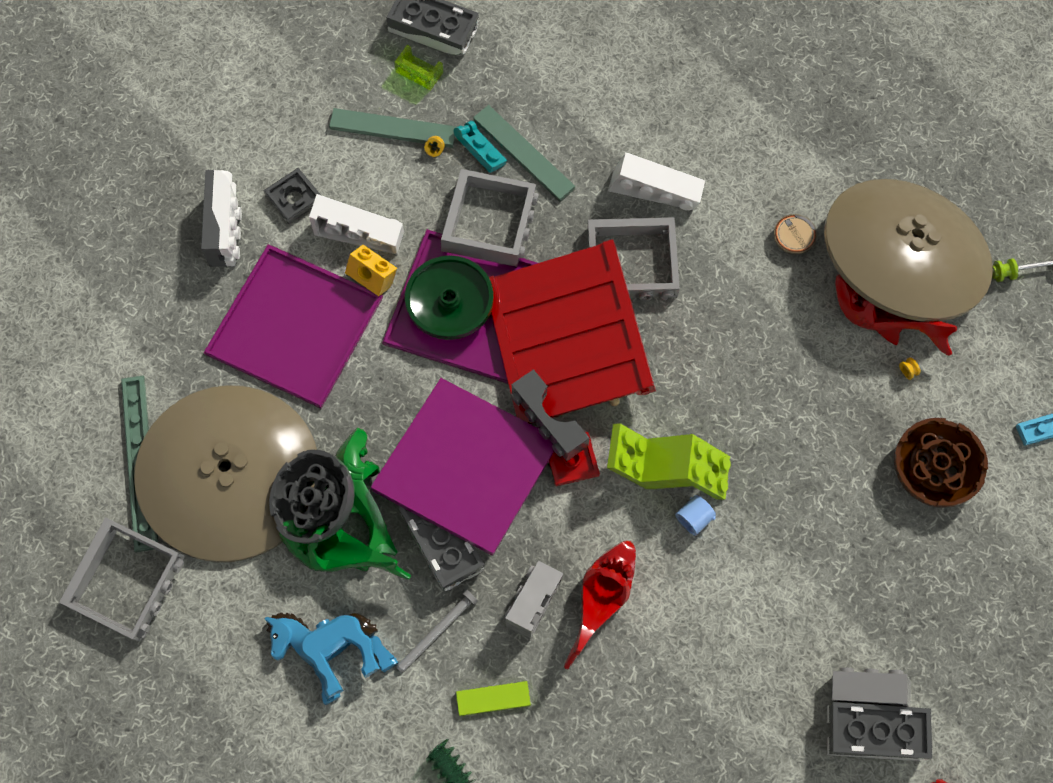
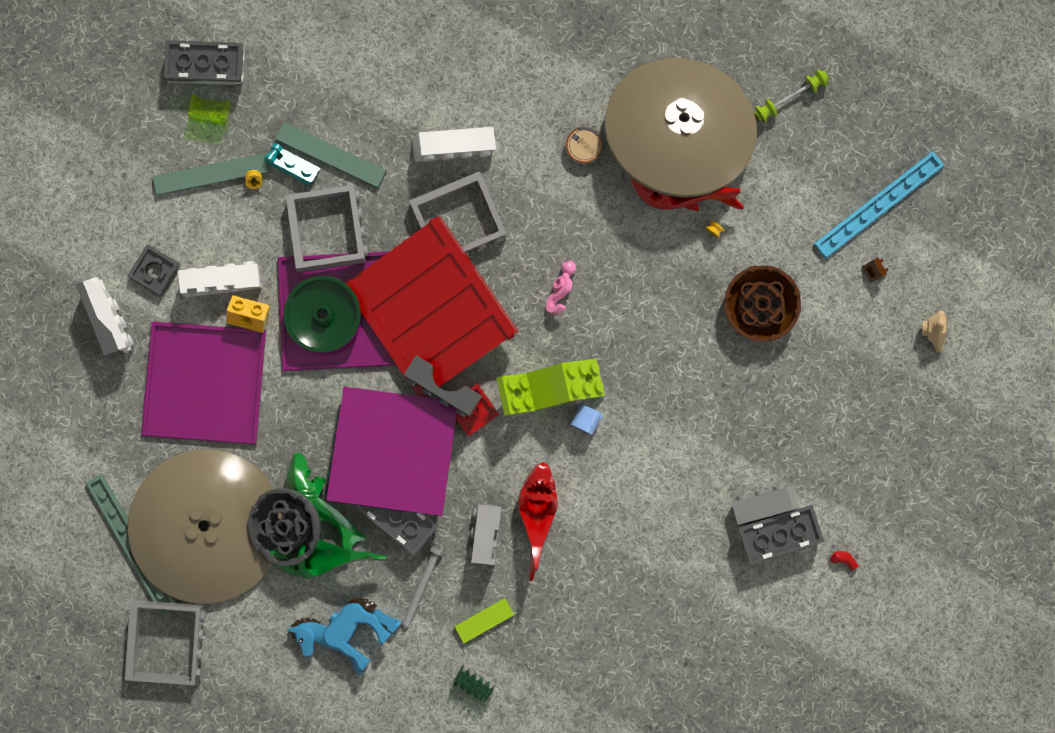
camera: 20 degrees left, 15 degrees up
(719, 366) = (561, 287): none -> bright pink piece

